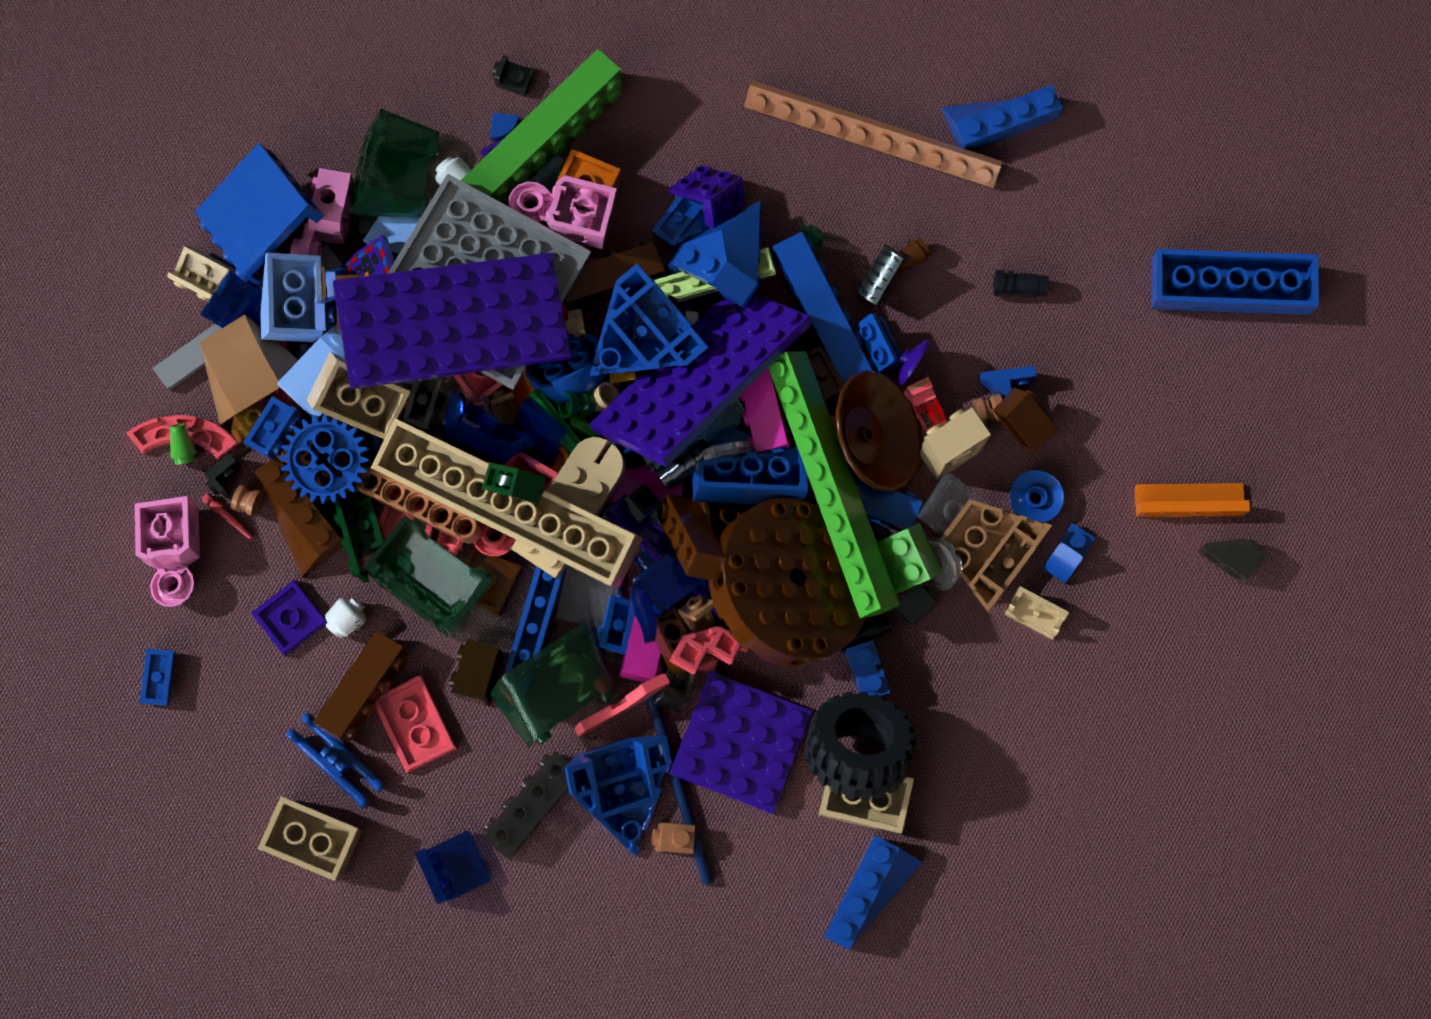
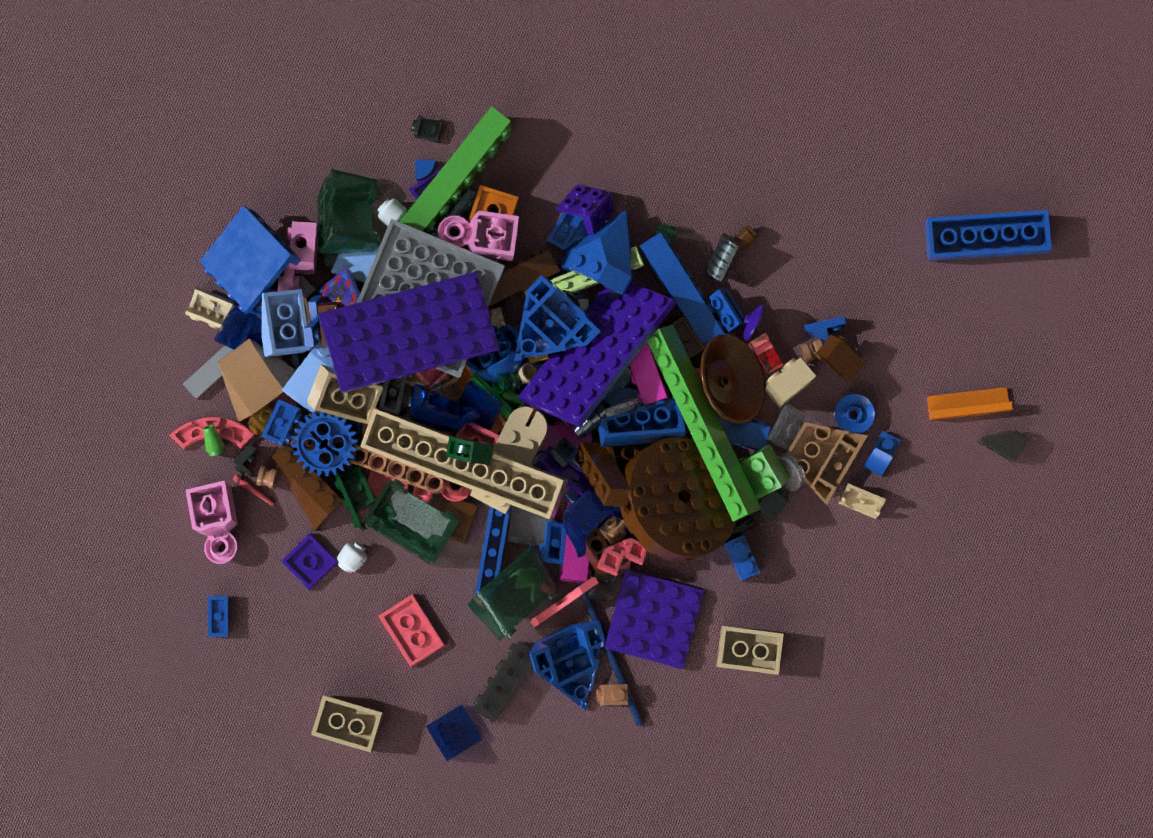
camera: 10 degrees left, 5 degrees up
(336, 761) = (358, 663): blue piece -> none
(361, 688) = (370, 609): reddish brown brick -> none
(476, 671) = (455, 588): dark brown brick -> none
(854, 772) = (737, 635): black tyre -> none
(873, 134) = (705, 147): nougat plate -> none
(873, 885) = (761, 713): blue wedge -> none
(993, 121) = (796, 126): blue wedge -> none
(1019, 284) = (827, 252): black axle -> none

